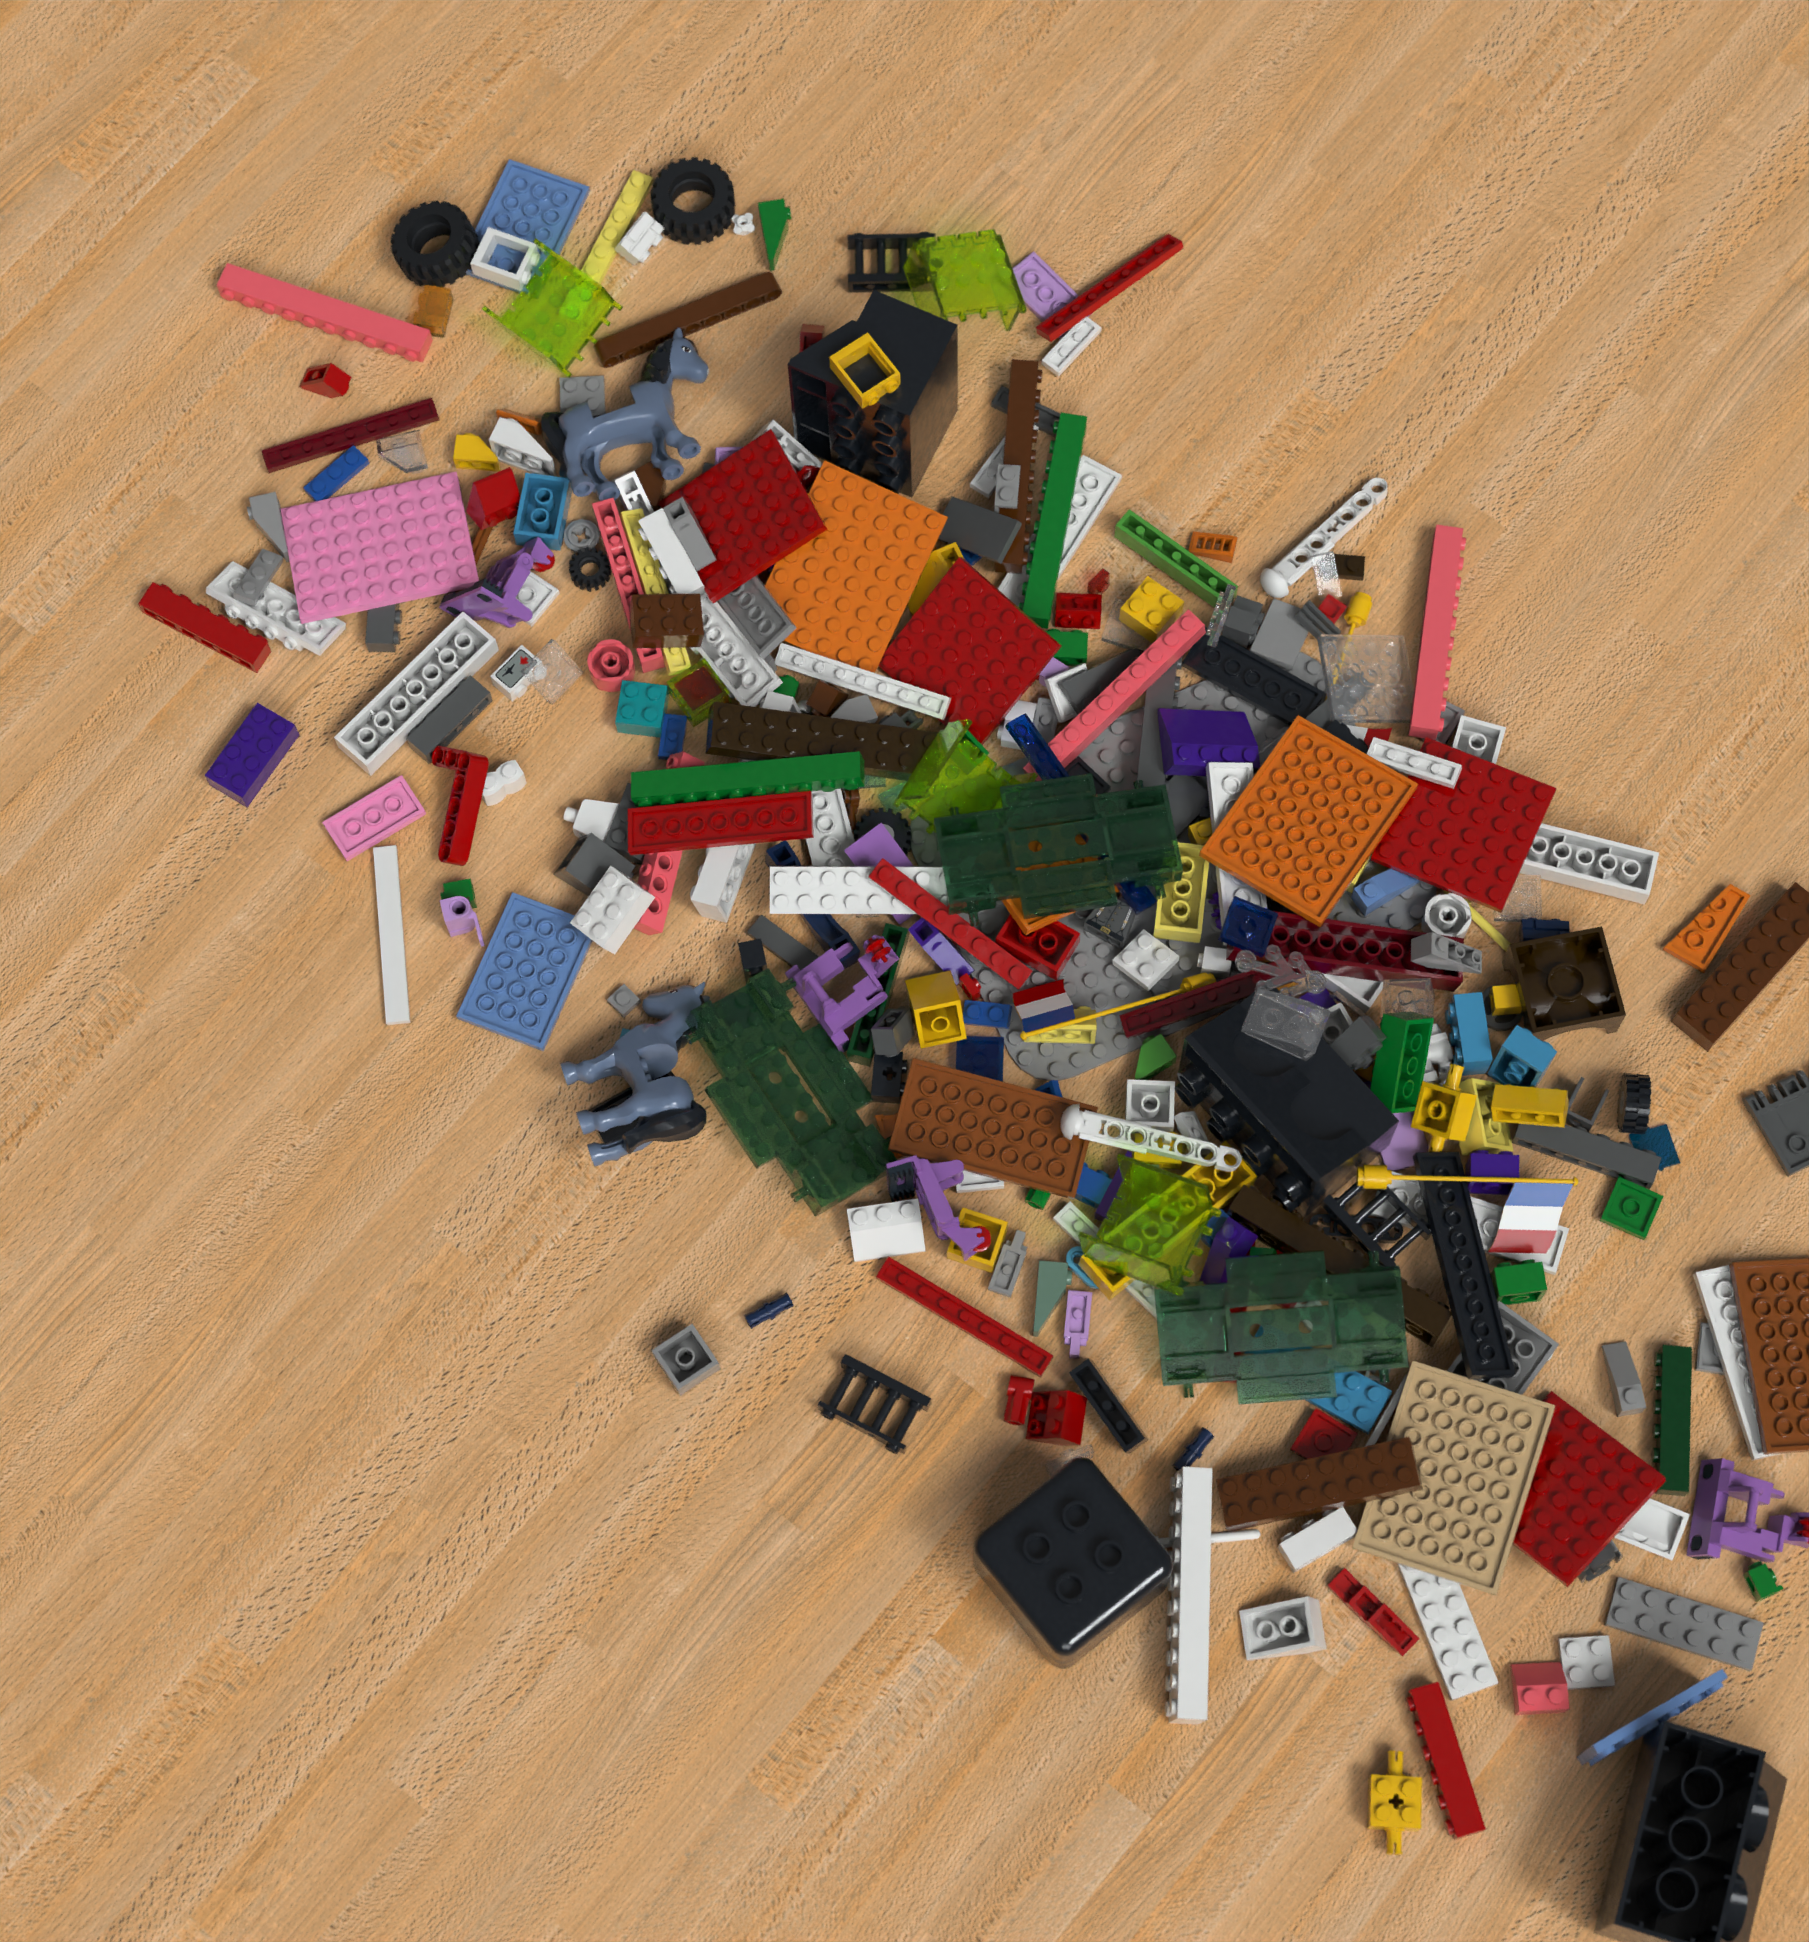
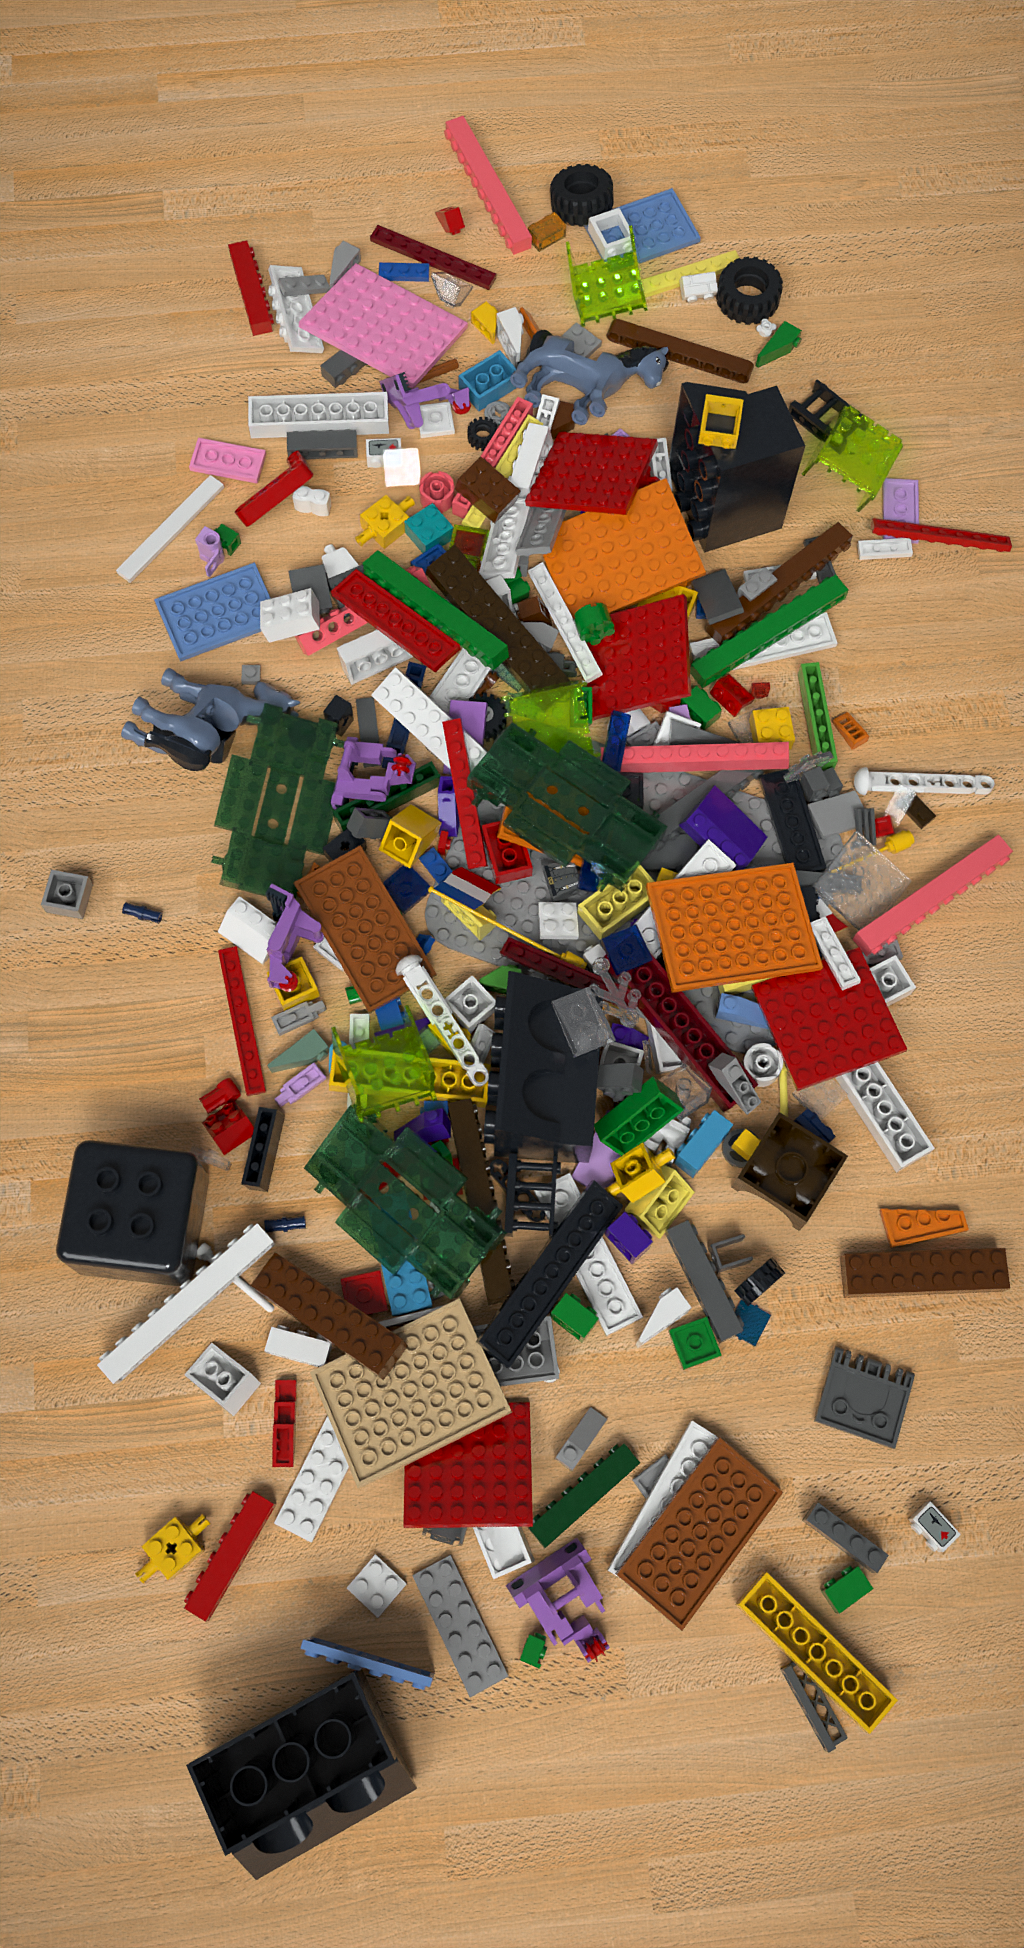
camera: 40 degrees right, 0 degrees up
(252, 755) = (201, 372): dark purple brick -> none
(494, 499) = (468, 348): red slope -> none
(582, 729) = (384, 521): none -> yellow brick
(690, 533) = (551, 453): light grey slope -> none
(873, 1380) = (158, 1023): black fence -> none
(897, 658) = (593, 623): none -> green brick
(1522, 1059) = (715, 1189): dark azure brick -> none
(1528, 1215) = (623, 1282): flag -> none
(1529, 1105) = (692, 1220): yellow brick -> none
(1539, 1688) = (331, 1571): coral slope -> none
(1585, 1209) = (667, 1311): none -> white slope

